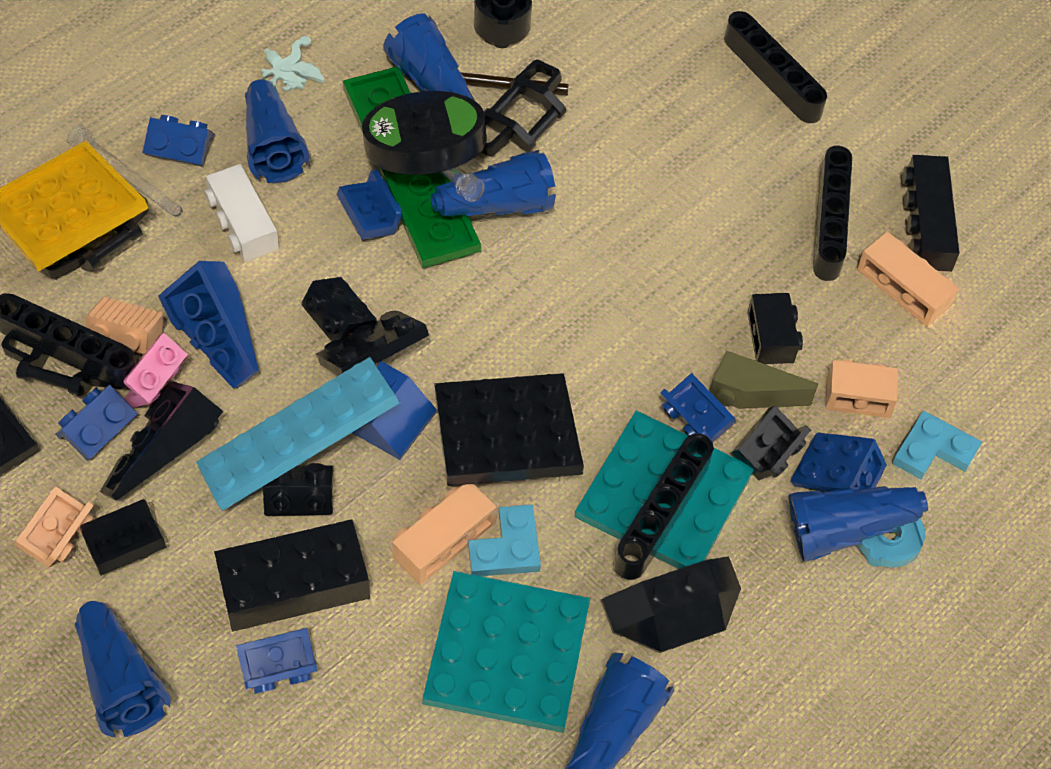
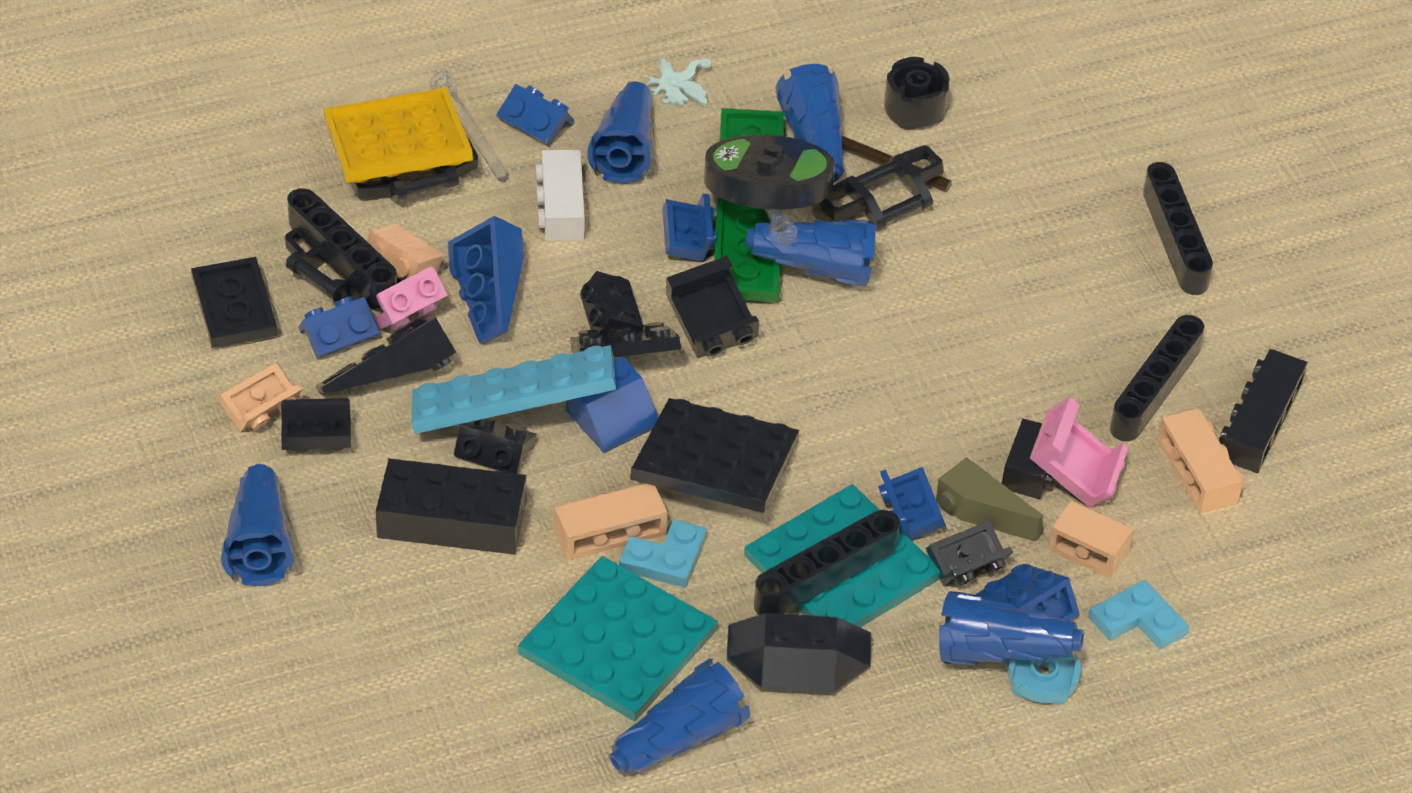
camera: 25 degrees right, 10 degrees down
(276, 659) = (403, 567): blue bracket -> none
(431, 282) = (711, 307): none -> black panel
(814, 315) = (1077, 456): none -> bright pink panel

